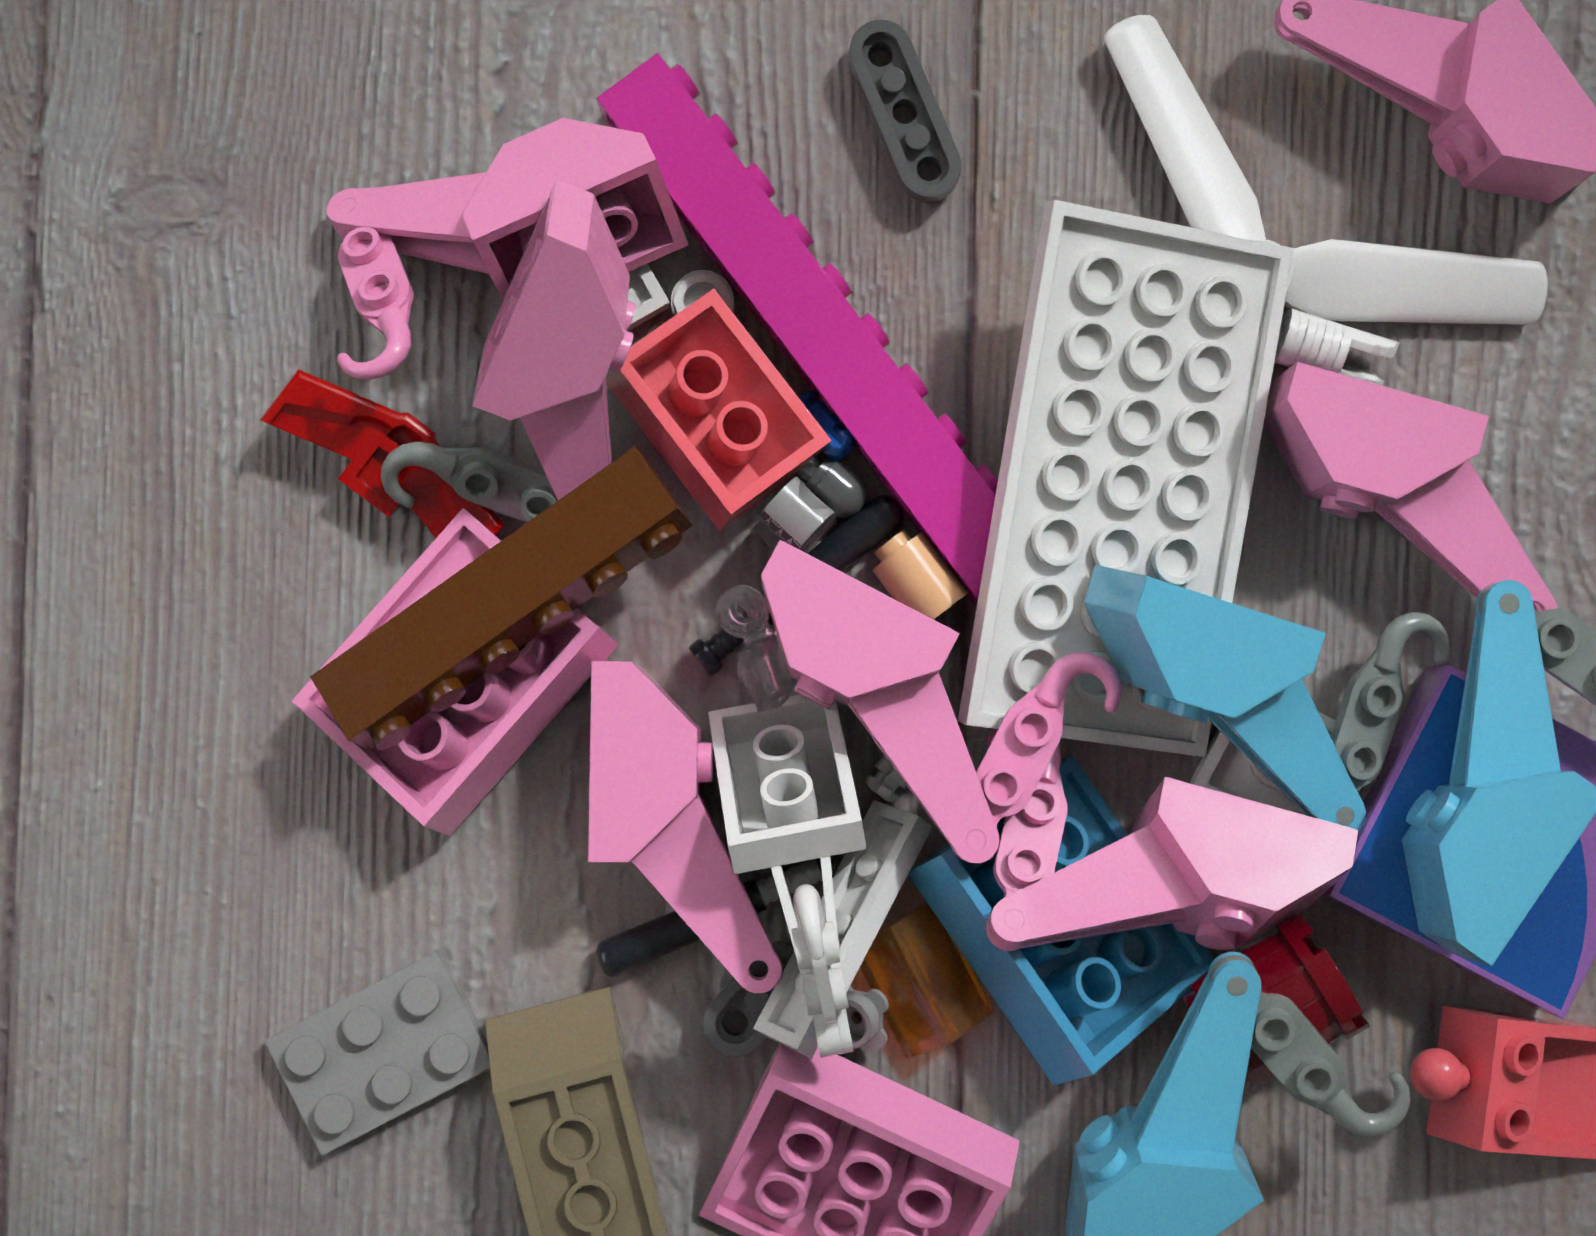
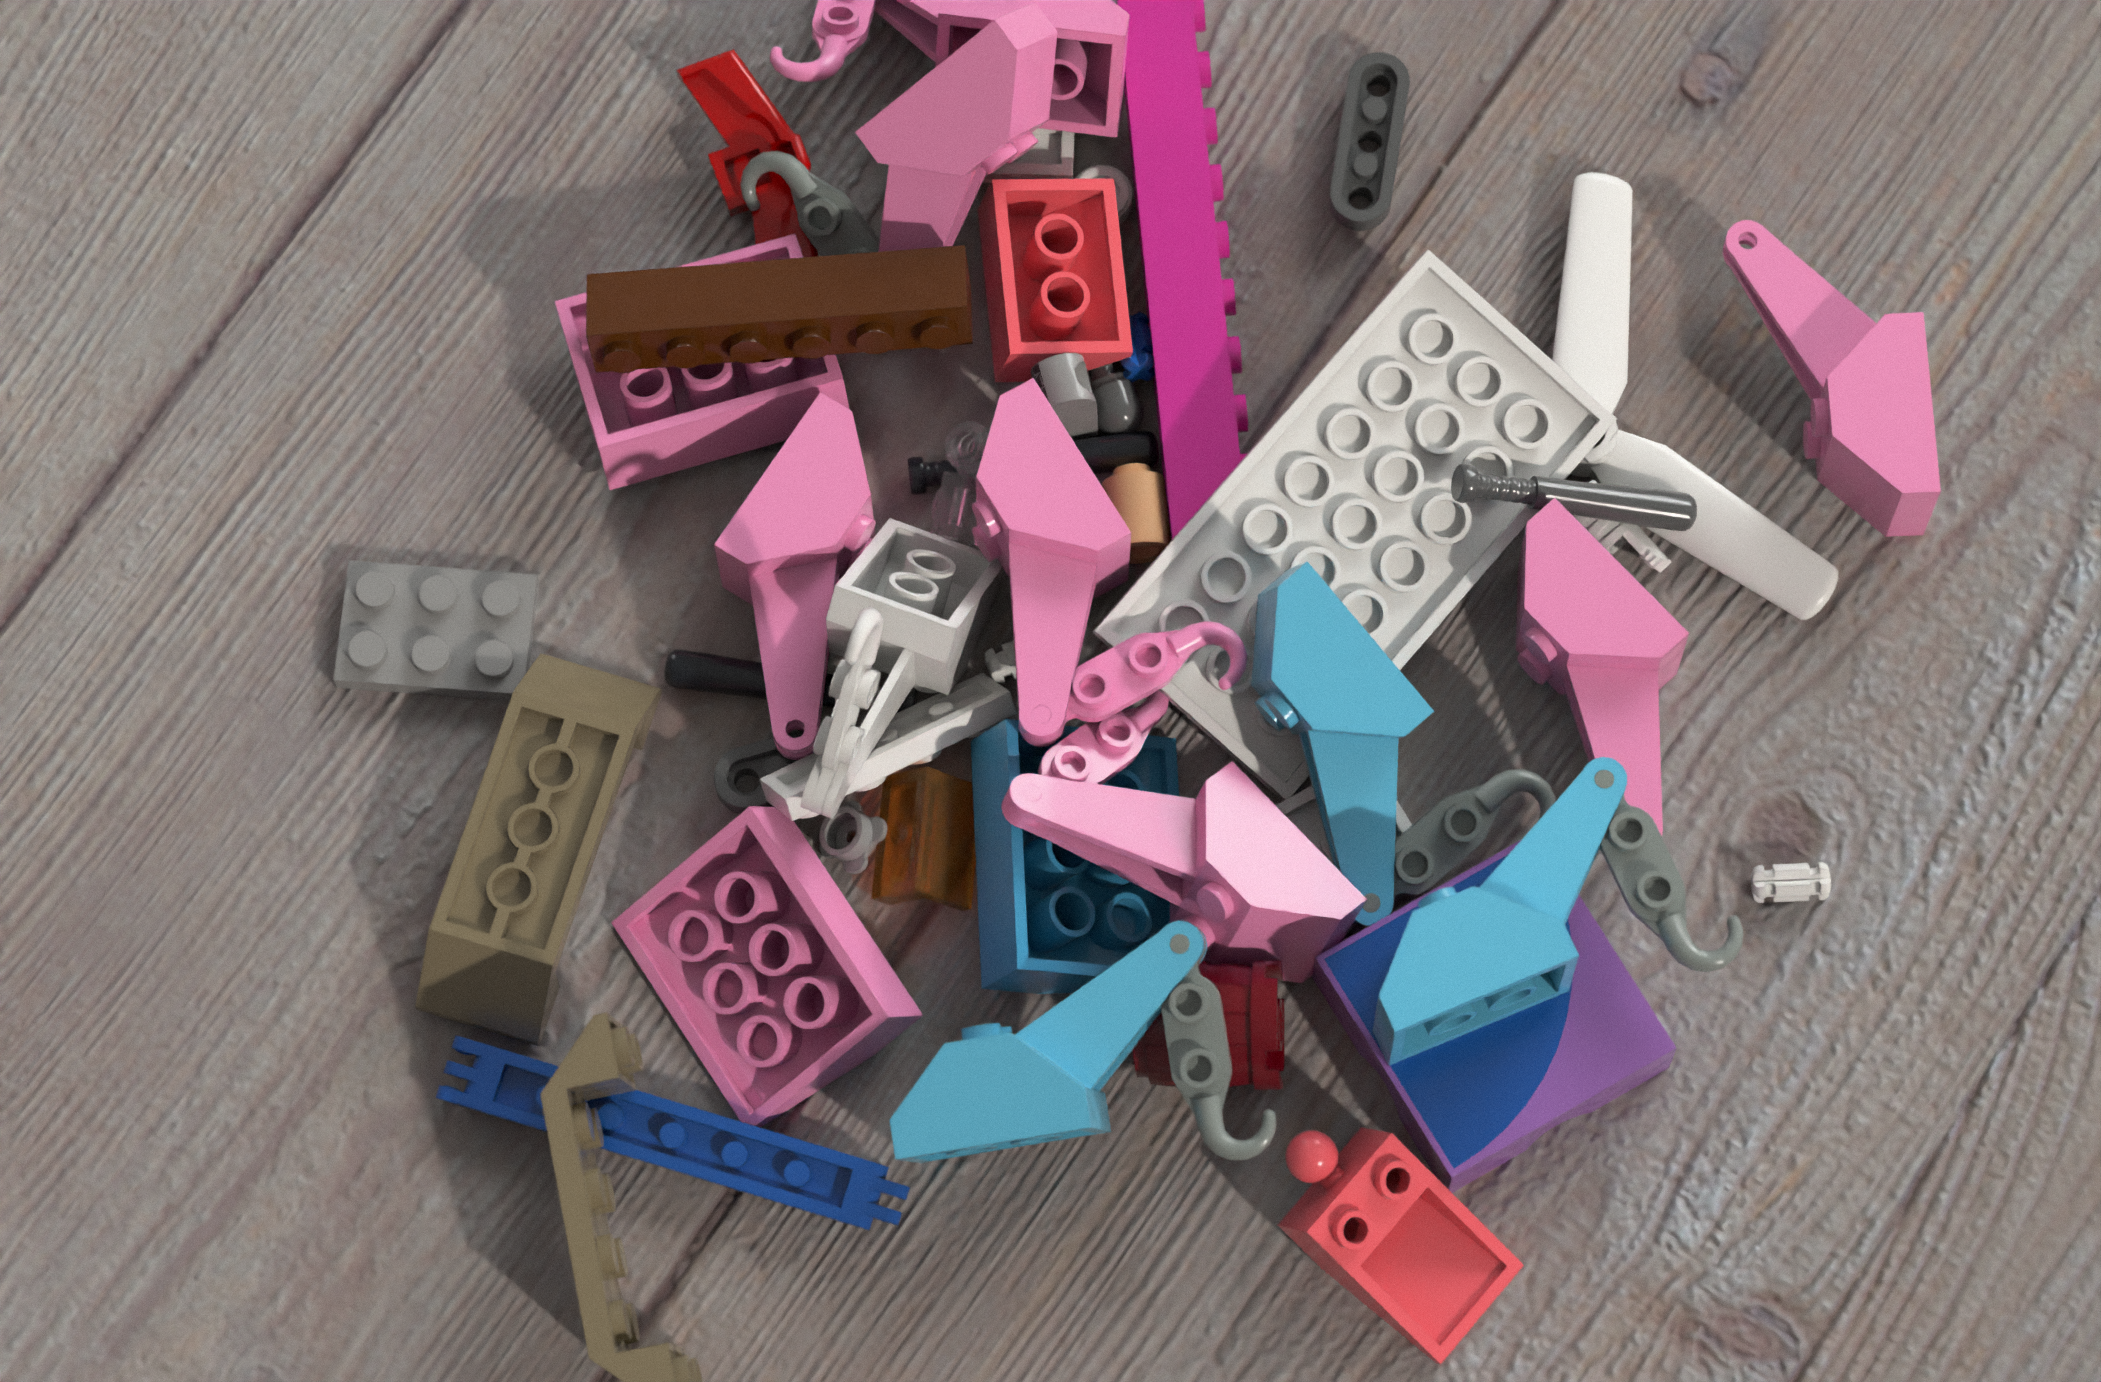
camera: 35 degrees right, 15 degrees down
(1321, 331) = (1593, 500): none -> dark grey piece

